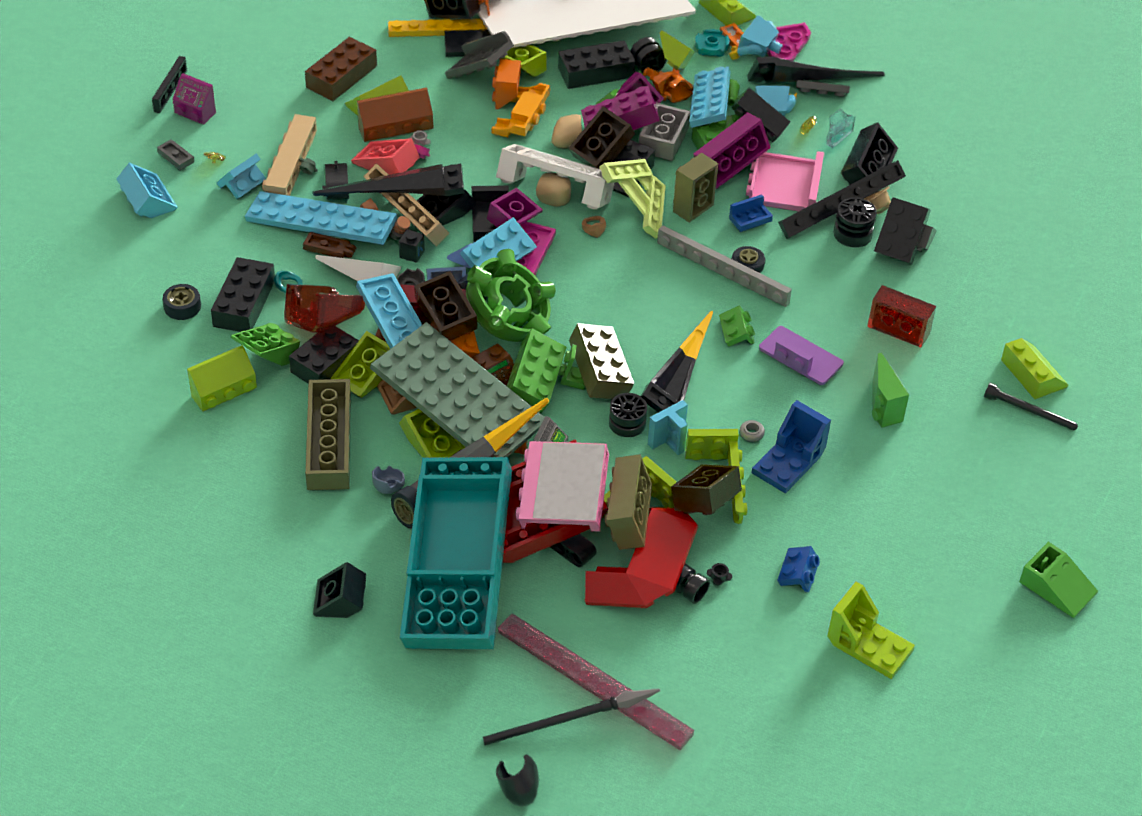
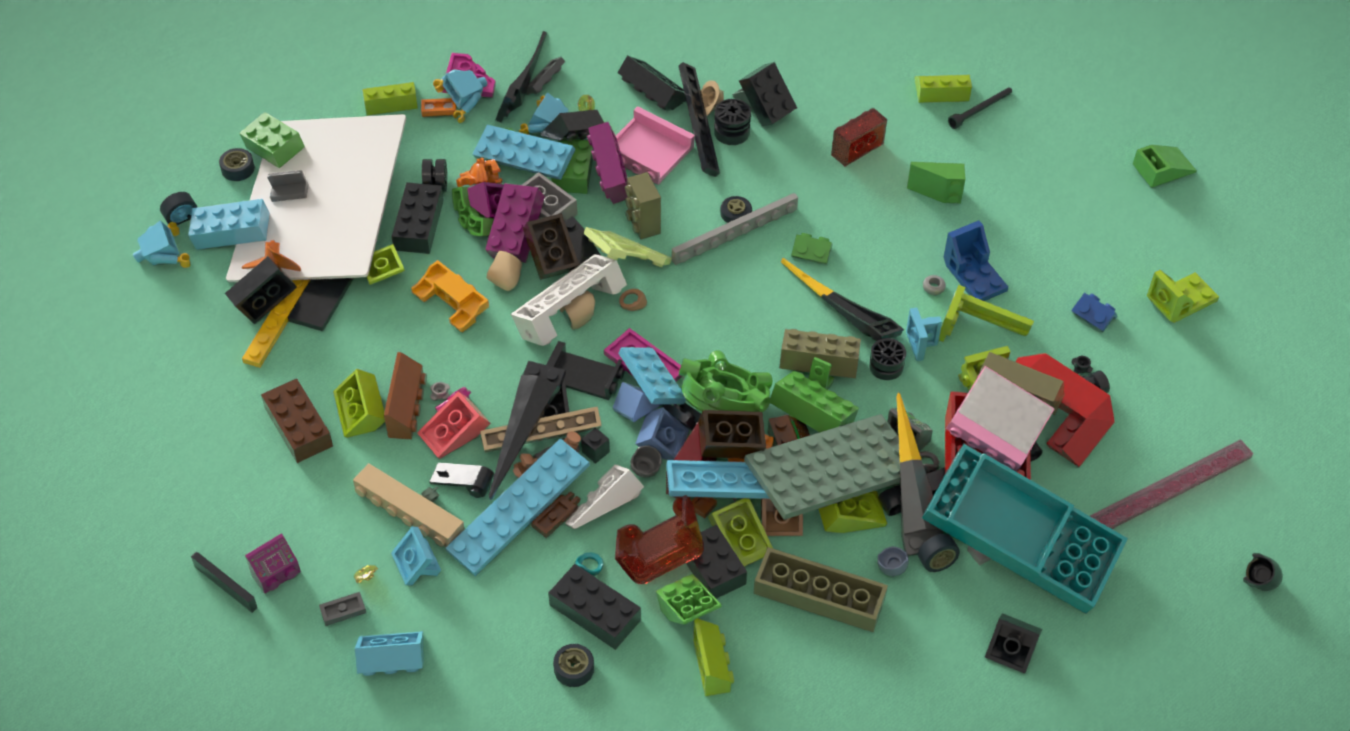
camera: 65 degrees left, 5 degrees up
(481, 54) = (366, 296): dark grey bracket -> none
(506, 82) = (412, 291): orange slope -> none
(512, 205) = (598, 348): magenta slope -> none
(624, 700) = (1203, 487): black piece -> none
(675, 51) = (455, 150): lime slope -> none
(704, 44) = (437, 133): teal plate -> none
(706, 489) = (1016, 329): dark brown brick -> none
(749, 213) = (682, 187): blue bracket -> none
(801, 355) = (862, 220): medium lavender bracket -> none
(840, 127) = (606, 88): clear light blue slope -> none

